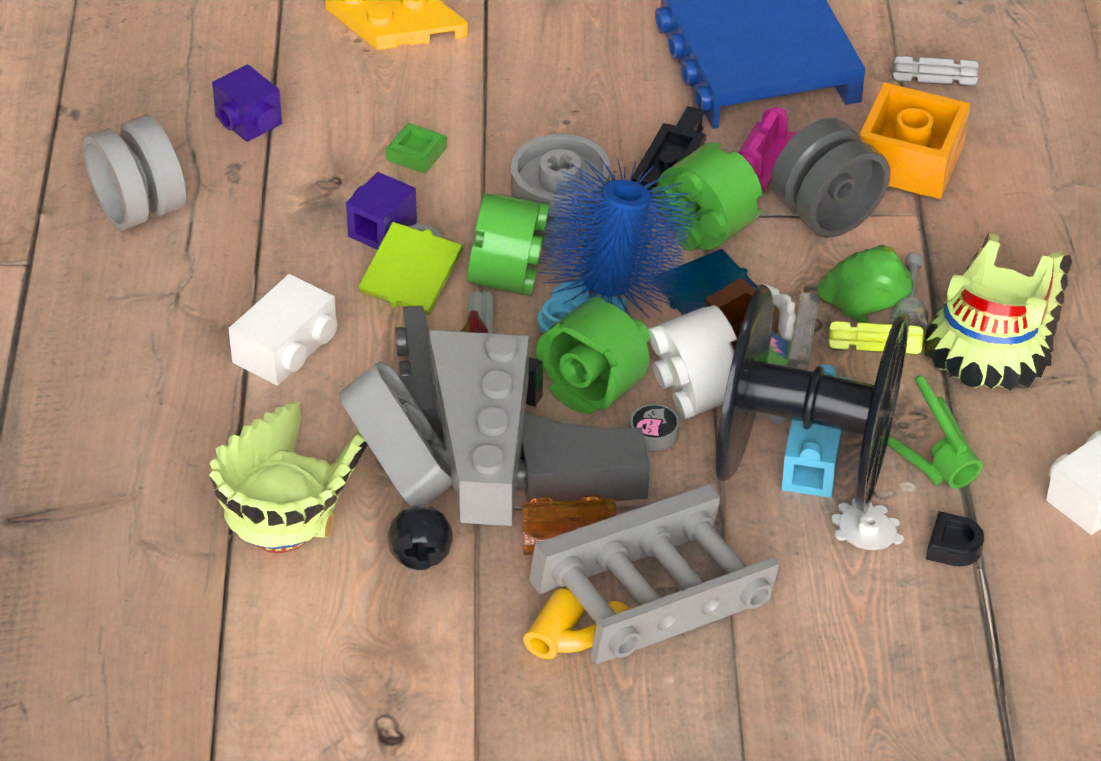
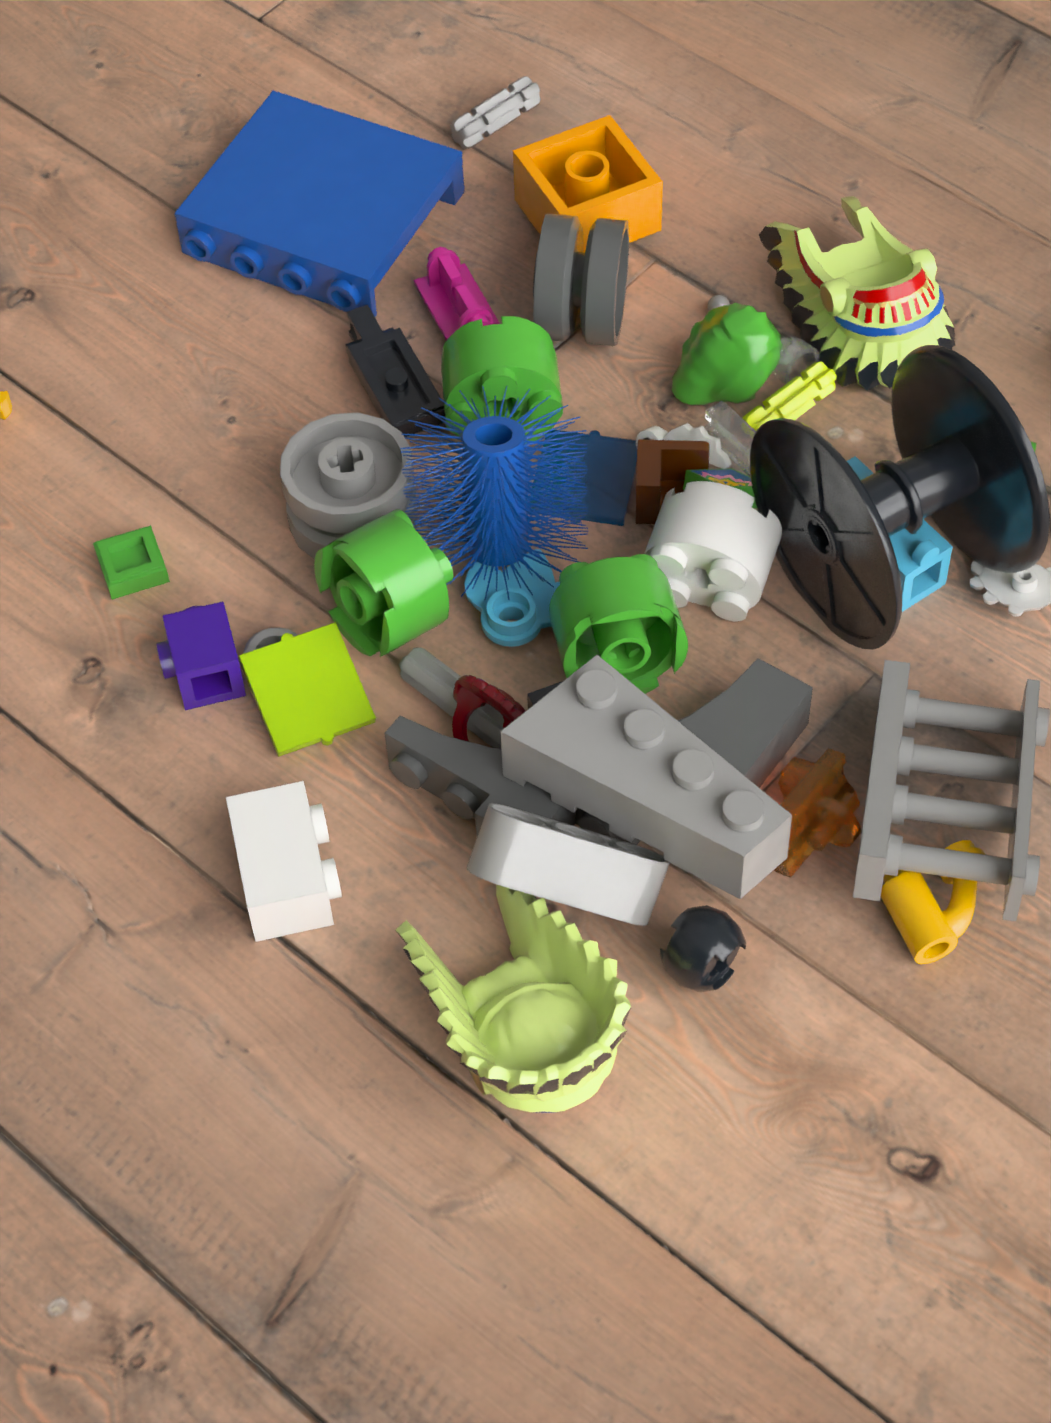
camera: 45 degrees left, 10 degrees up
(658, 425) = (729, 648): tile -> none

